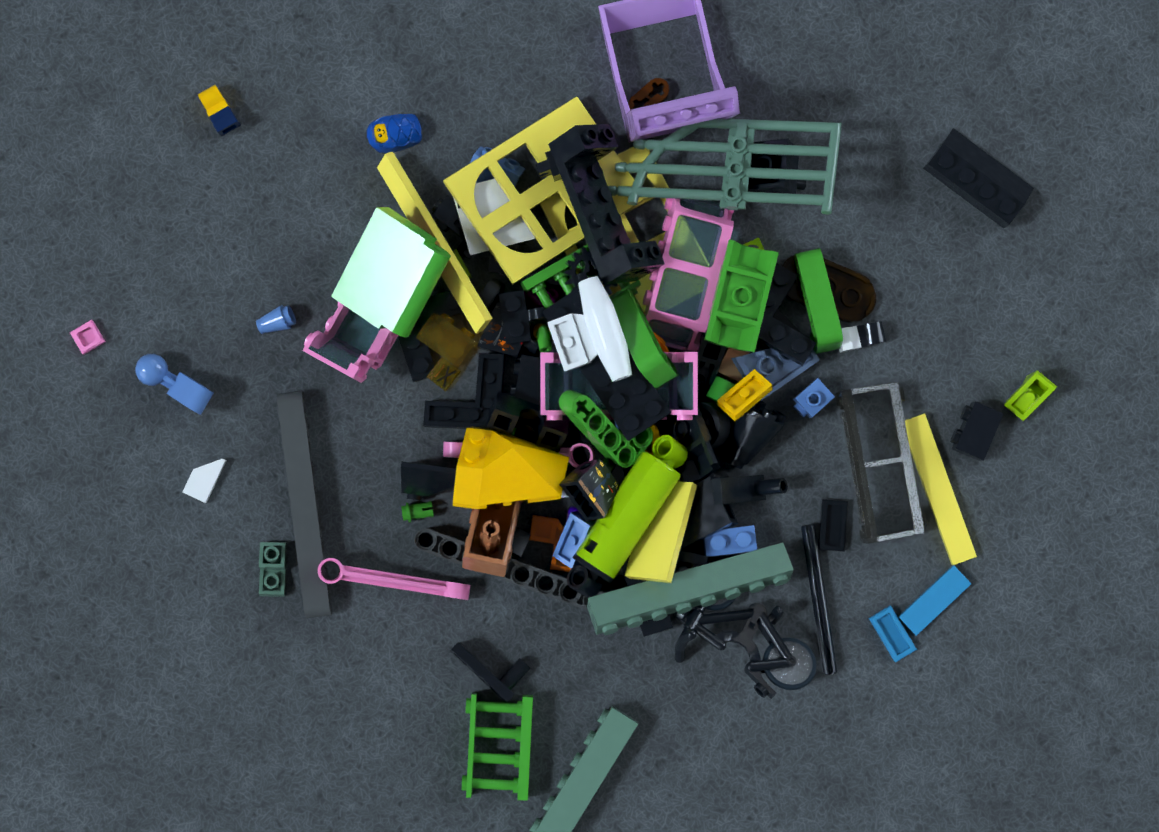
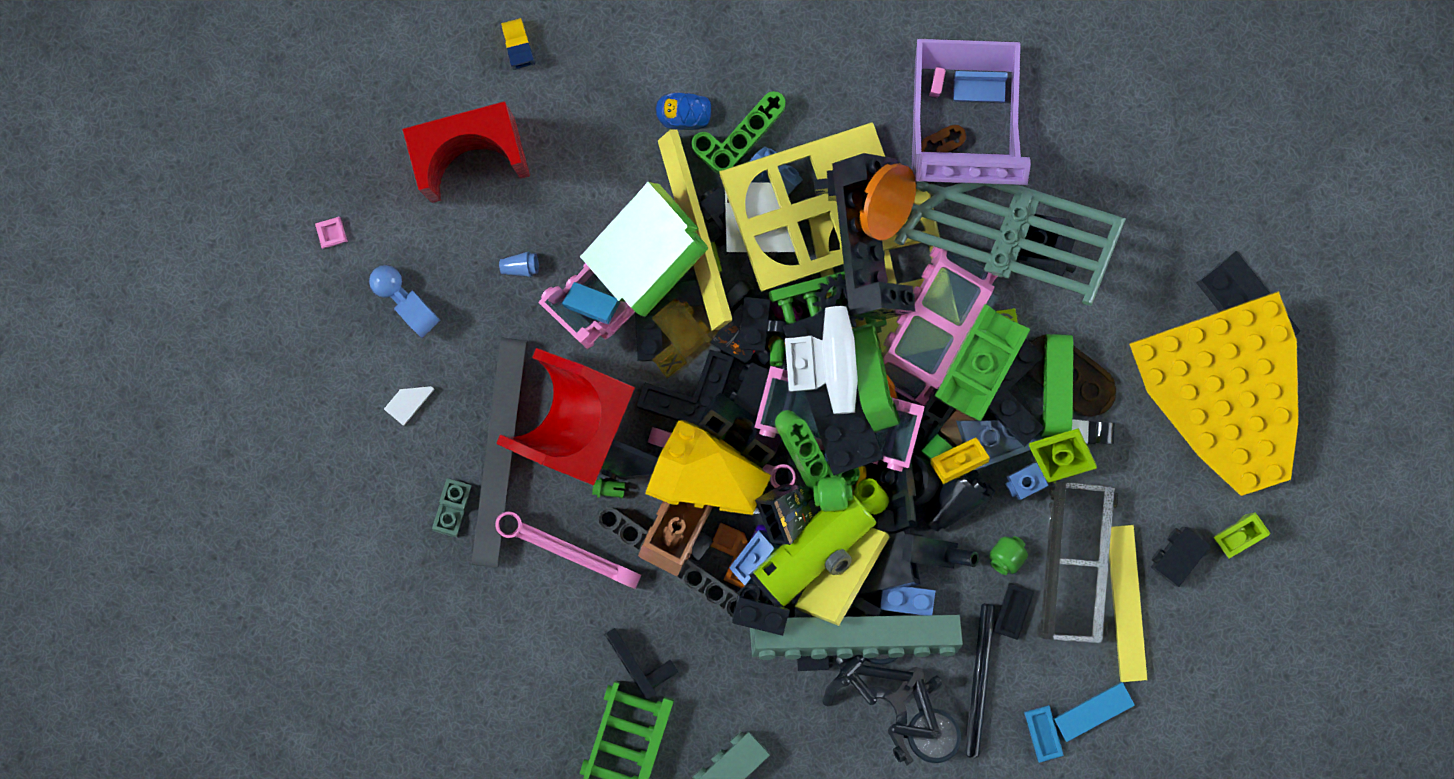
camera: 30 degrees right, 0 degrees up
(169, 220) = (440, 141): none -> red piece
(353, 338) = (591, 303): none -> dark azure tile
(372, 456) = (580, 420): none -> red piece
(455, 136) = (742, 130): none -> bright green beam
(593, 593) = (760, 616): none -> black plate
(611, 165) = (888, 201): none -> orange tile
(628, 42) = (937, 82): none -> bright pink tile
(632, 458) = (832, 494): none -> bright green head
(654, 522) = (838, 562): none -> dark grey tile
(669, 36) = (979, 86): none -> medium blue panel
(814, 473) = (1008, 555): none -> bright green head
(841, 364) = (1063, 455): none -> lime slope
(982, 260) = (1230, 389): none -> yellow piece

